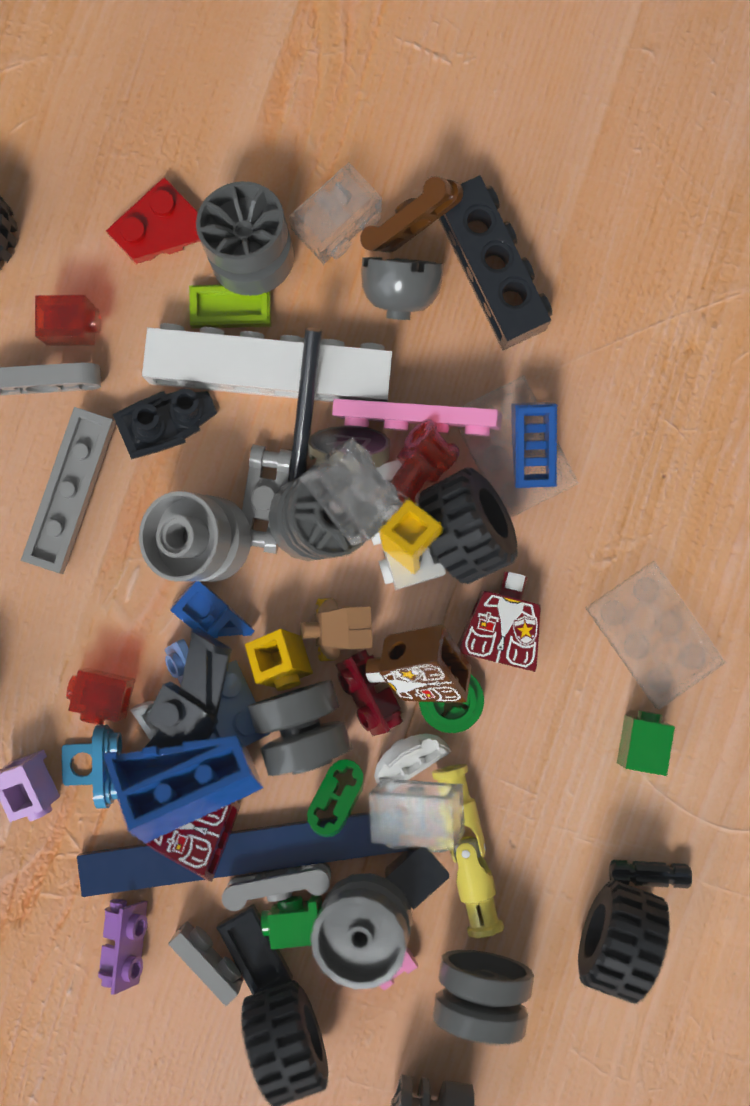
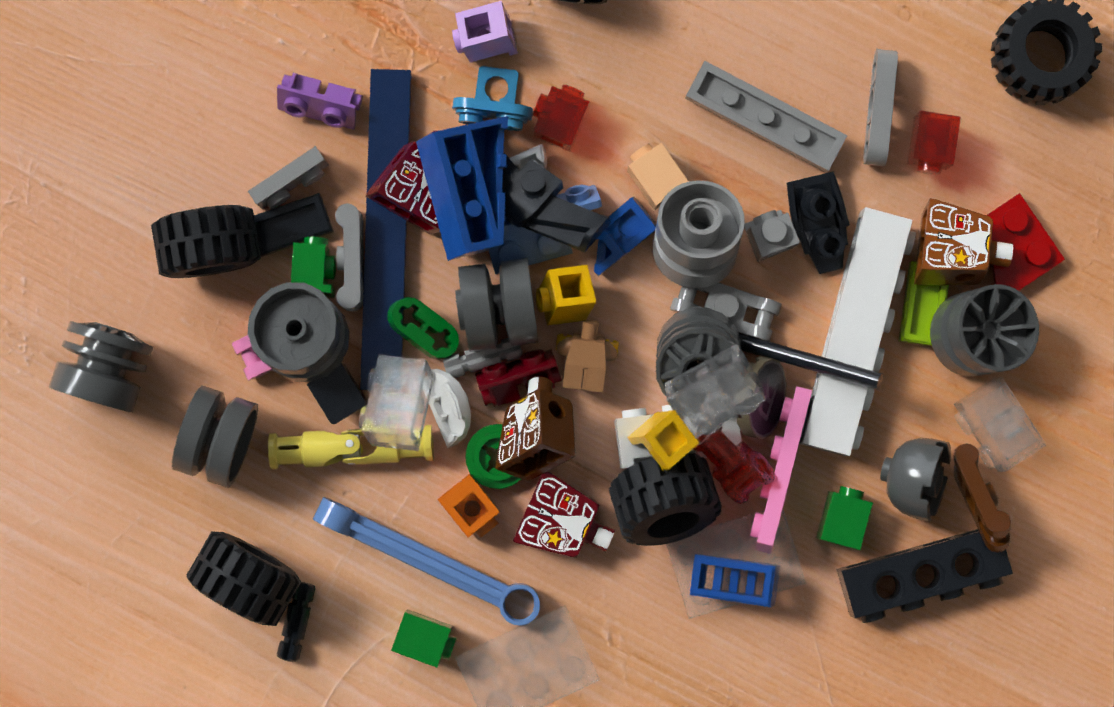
camera: 100 degrees right, 0 degrees up
(141, 591) = (655, 173): none -> light nougat brick
(166, 281) = (956, 246): none -> dark orange torso
(185, 464) = (771, 234): none -> light grey brick
(360, 738) = (477, 360): none -> light grey axle
(454, 348) = (844, 518): none -> green brick
(507, 735) = (456, 499): none -> orange brick
(543, 841) = (352, 524): none -> medium blue piece

